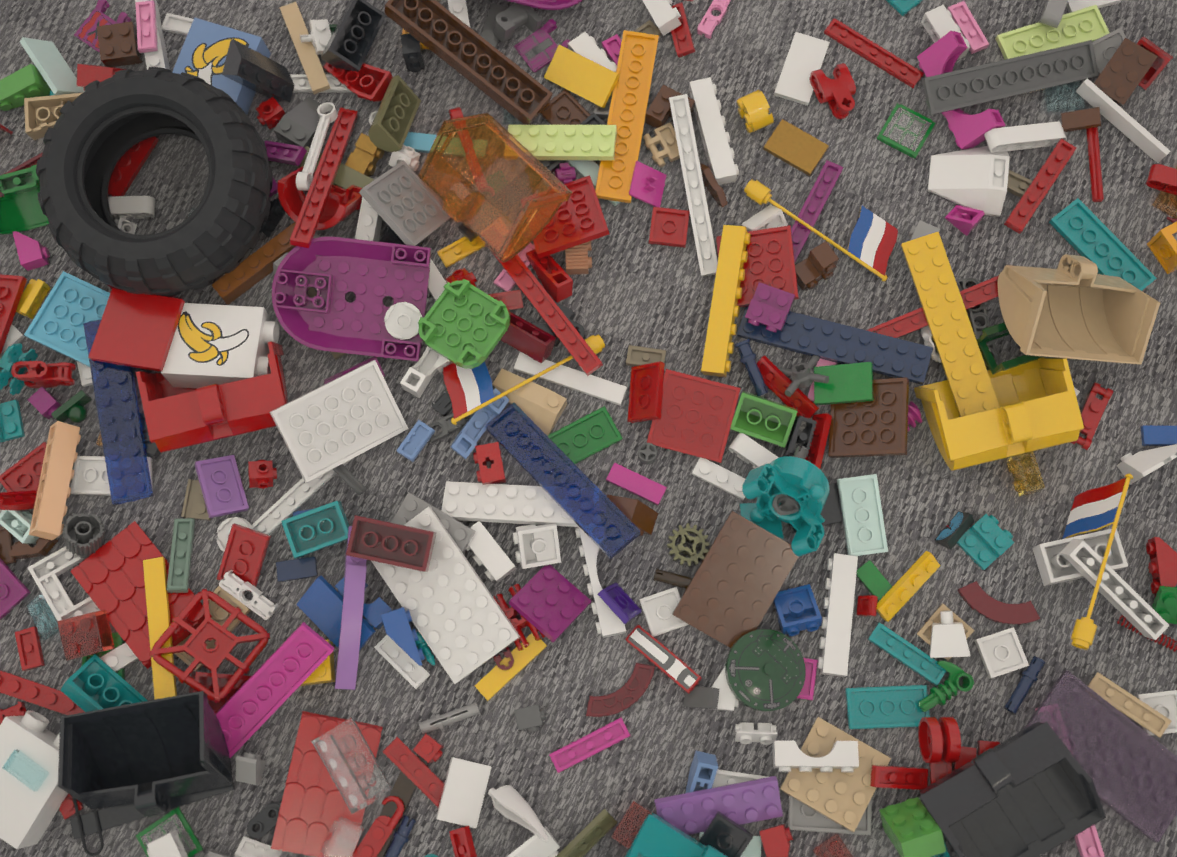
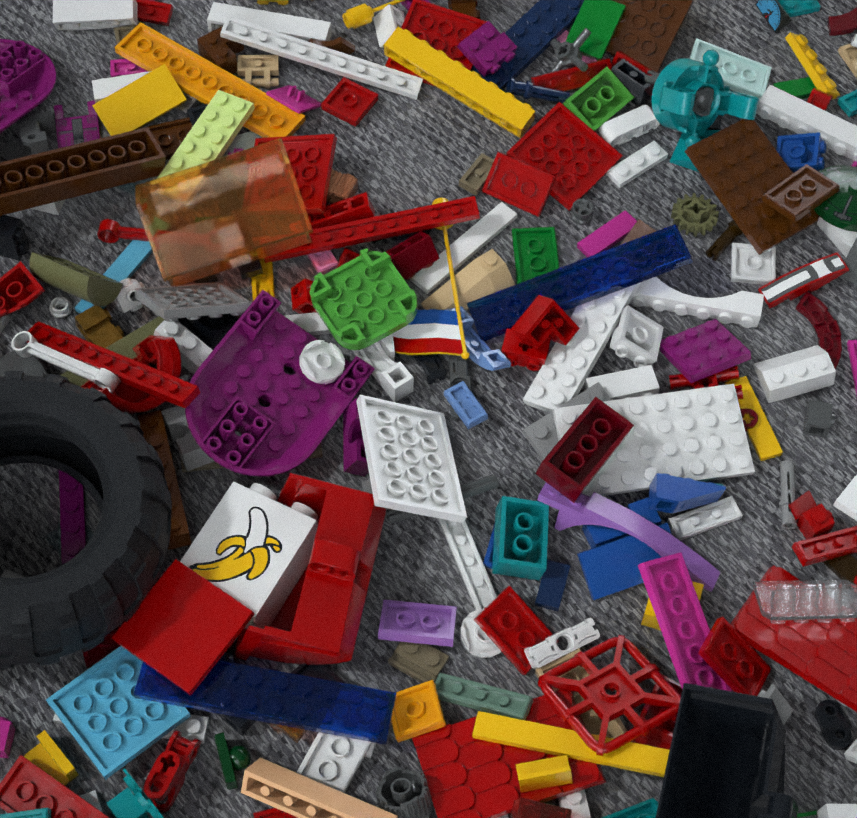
camera: 70 degrees left, 15 degrees down
(44, 402) = (205, 790): magenta brick -> none
(130, 621) = (544, 773): none -> yellow panel
(154, 514) = (417, 711): none -> light orange tile
(261, 474) = (424, 575): red brick -> none
(277, 726) = (734, 659): none -> red tile
(443, 732) = (802, 504): none -> red window
(506, 465) = (544, 320): none -> red brick
(565, 682) = (795, 373): none -> white slope
(619, 602) = (733, 287): dark purple tile -> none
(739, 624) = (800, 193): none -> reddish brown tile

